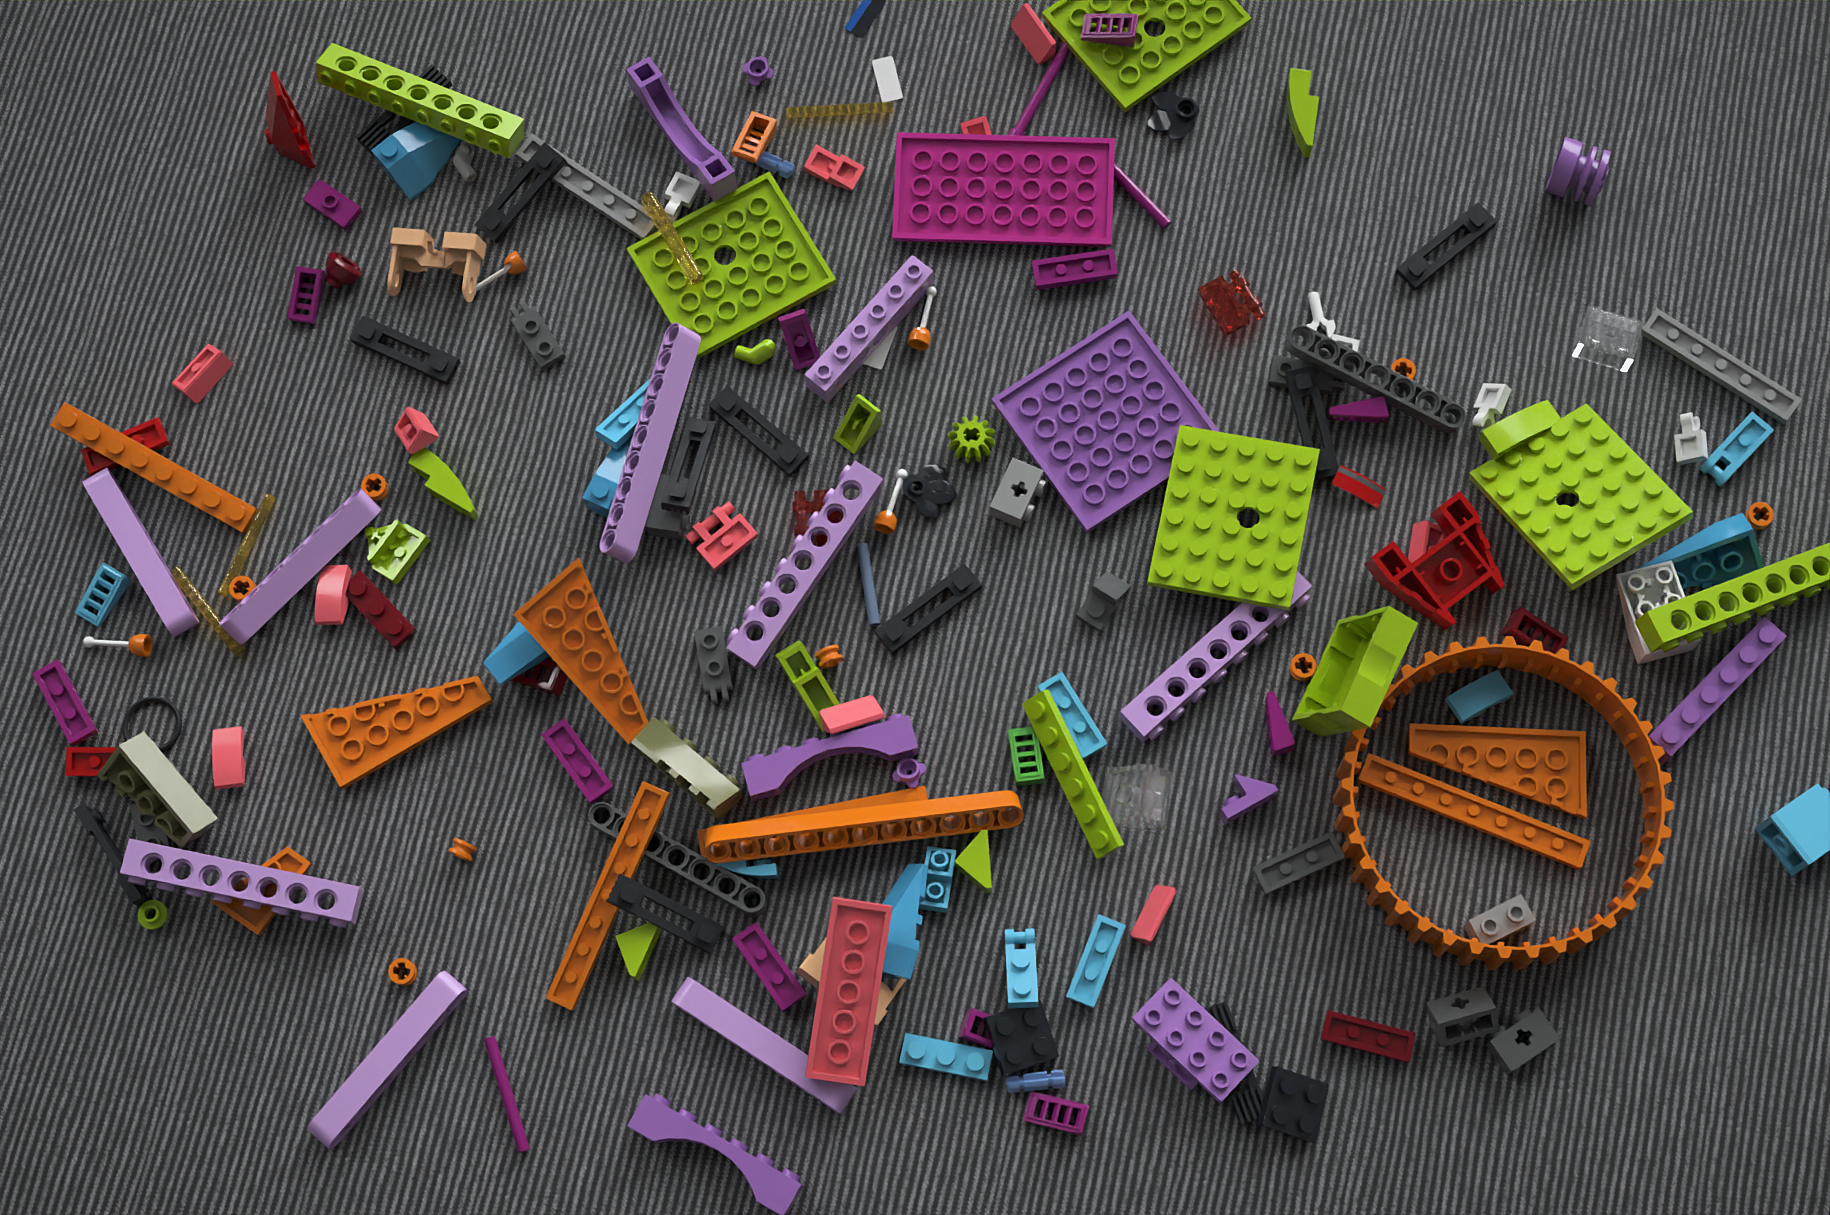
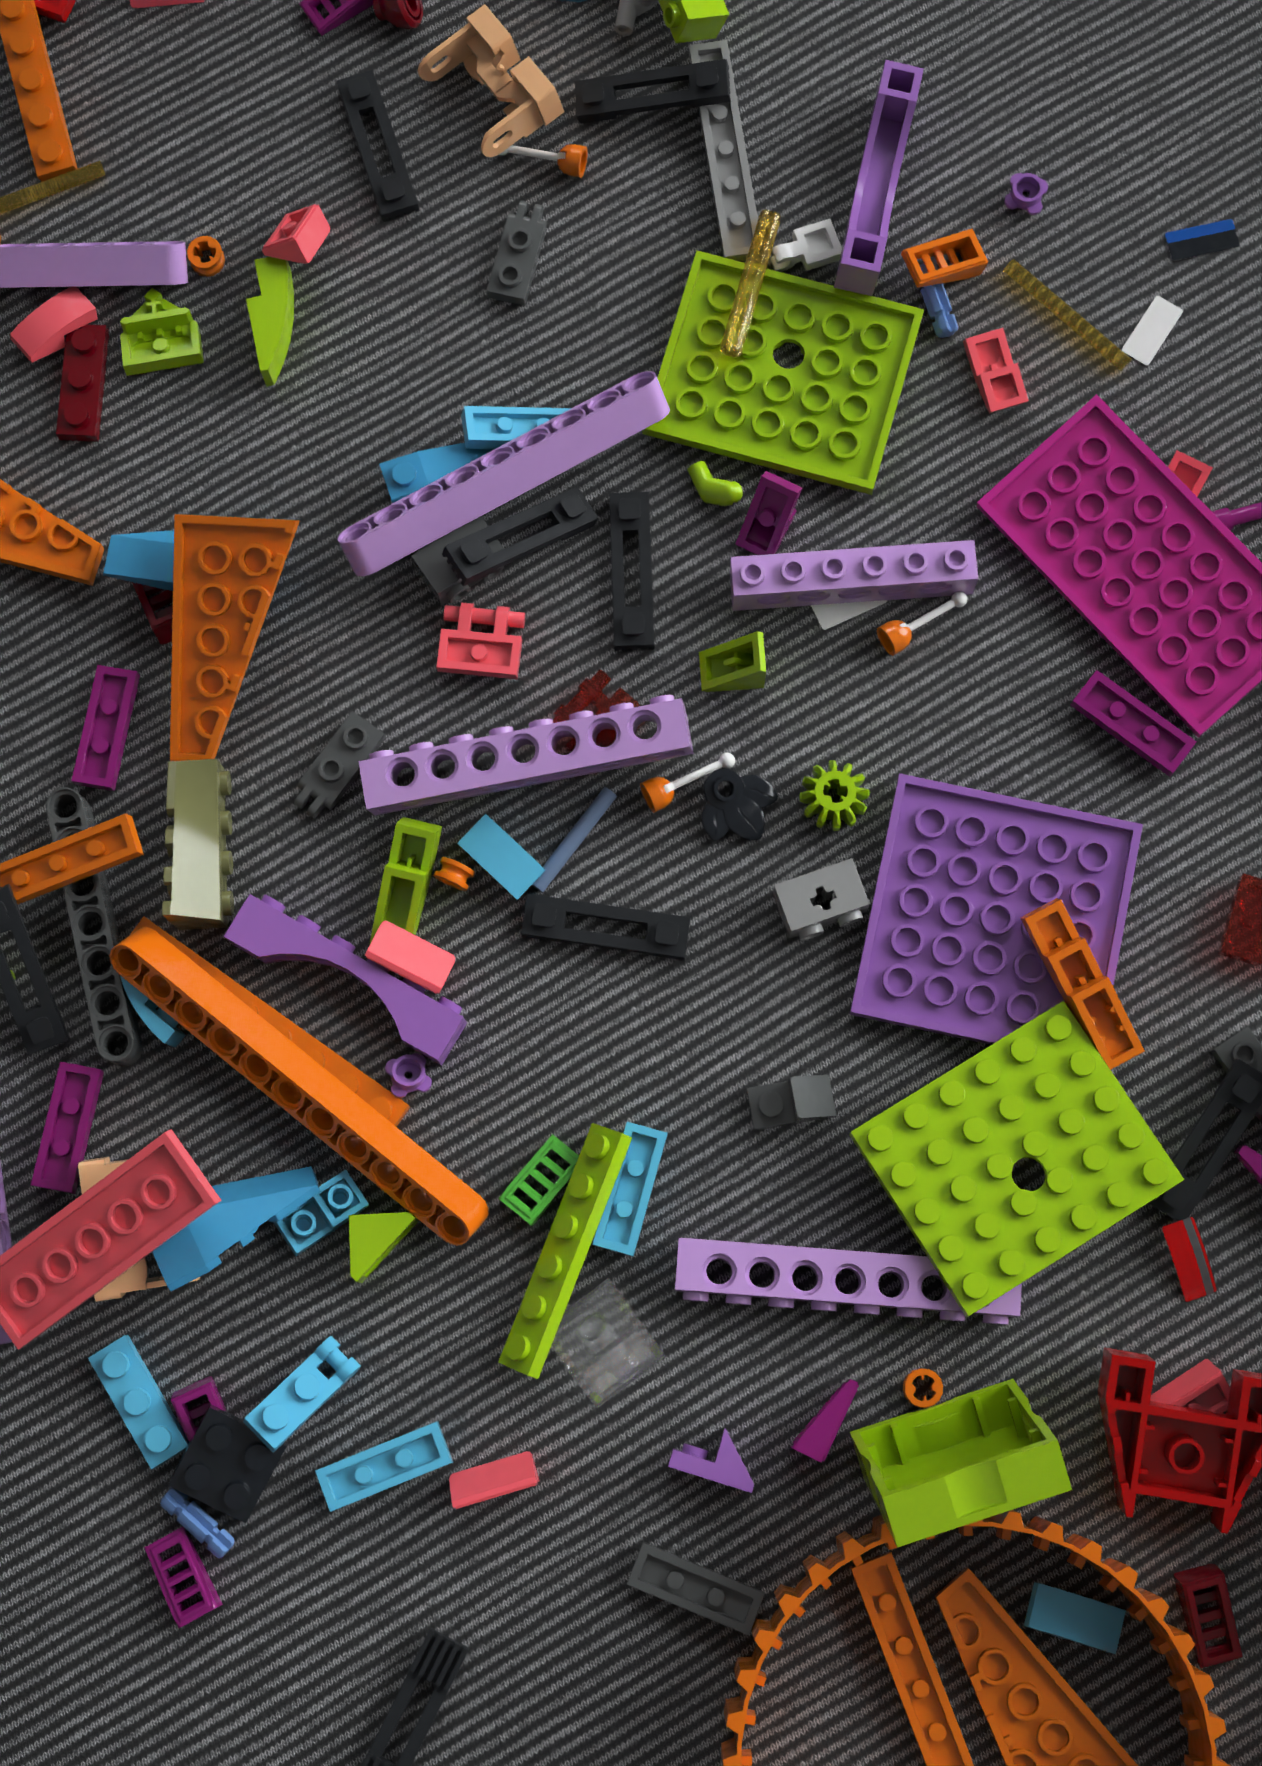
camera: 45 degrees right, 5 degrees up
(843, 624) = (501, 856): none -> medium azure slope
(1178, 408) = (1081, 983): none -> orange slope
(1193, 1042) = (388, 1659): medium lavender bracket -> none

